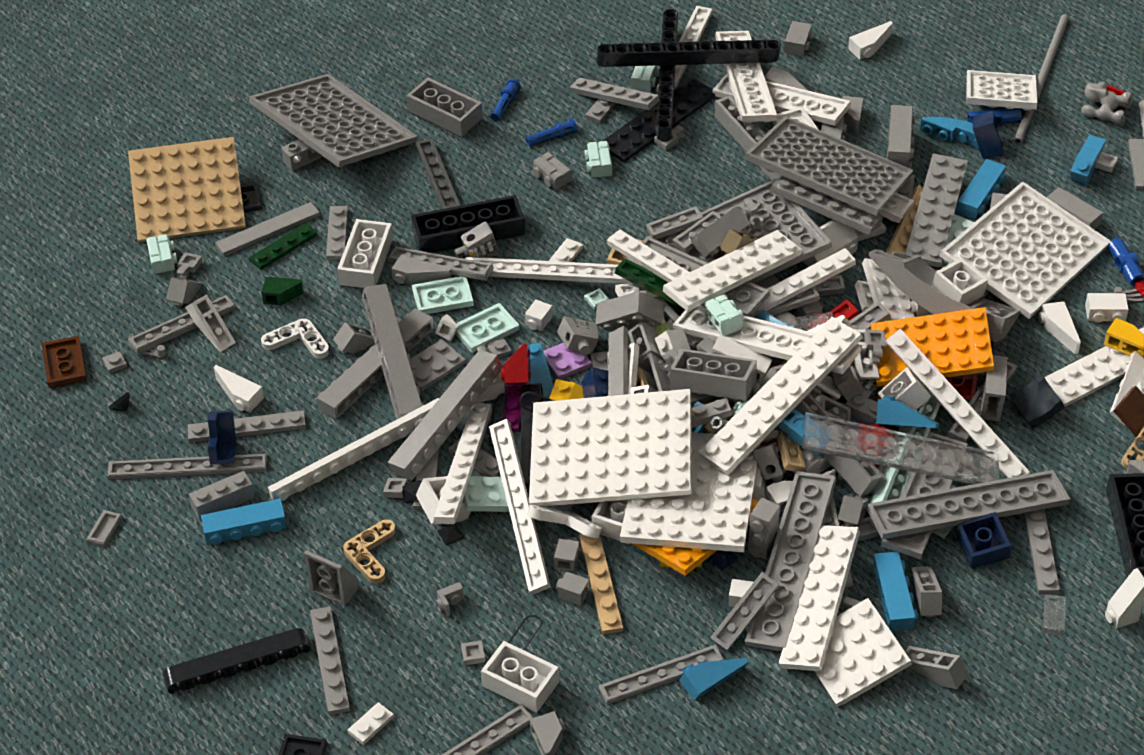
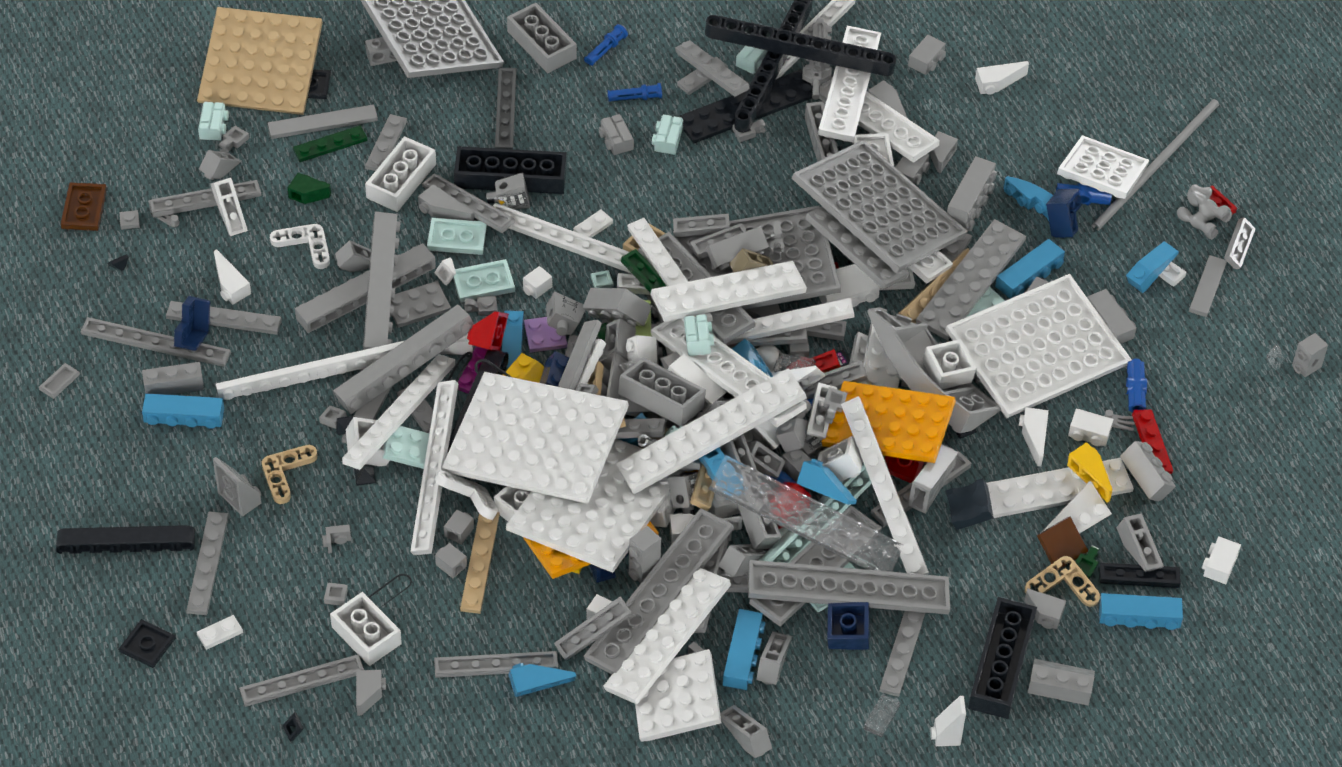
camera: 15 degrees right, 5 degrees up
(708, 73) = (816, 71): none -> light grey bar

